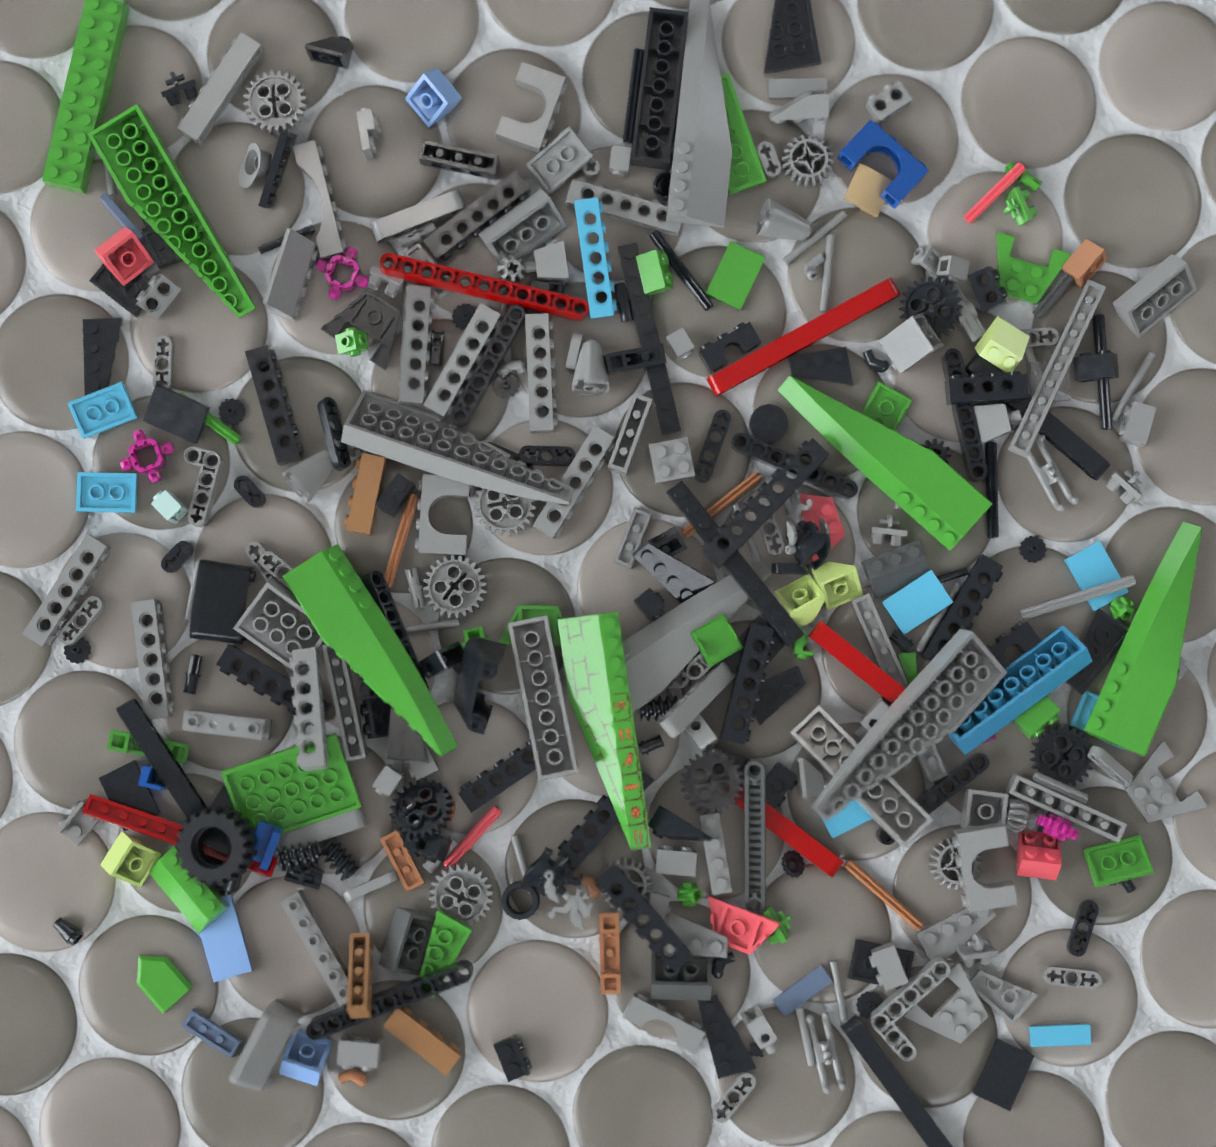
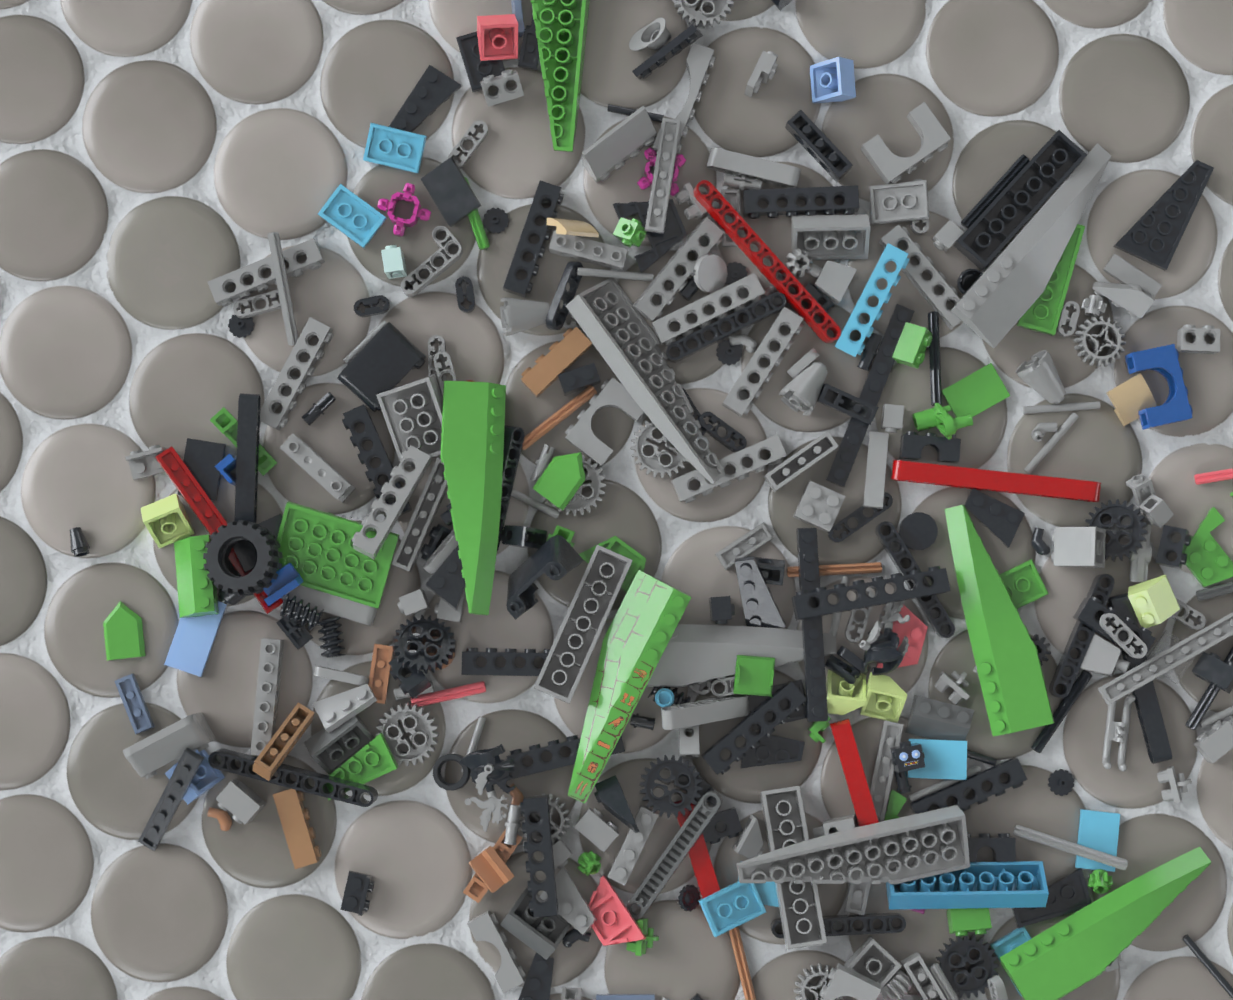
camera: 35 degrees right, 0 degrees up
(90, 593) = (283, 288): none -> light grey axle
(299, 1091) = (171, 799): none -> black tile
(300, 371) = (573, 227): none -> tan slope
(327, 382) = (588, 251): none -> light grey brick
(345, 275) = (663, 175): none -> light grey tile
(364, 386) = (615, 274): none -> light grey bar
(382, 723) = (441, 553): none -> light grey beam
(390, 910) = (343, 706): none -> light grey wing
(440, 589) = (561, 479): none -> bright green tile
(443, 329) = (710, 273): none -> light grey tile
(602, 908) = (512, 824): none -> light grey pin
(611, 957) = (491, 869): none -> nougat panel
(654, 711) = (664, 697): none -> medium azure plate
(697, 397) = (876, 470): none -> light grey tile
(721, 316) = (941, 419): none -> bright green piece
(782, 134) = (1094, 306): none -> light grey gear
(786, 583) = (842, 669): none -> black bar
(834, 846) = (732, 907): none -> medium azure tile
(891, 617) = (907, 756): none -> black head
(1011, 397) = (1131, 635): none -> light grey beam

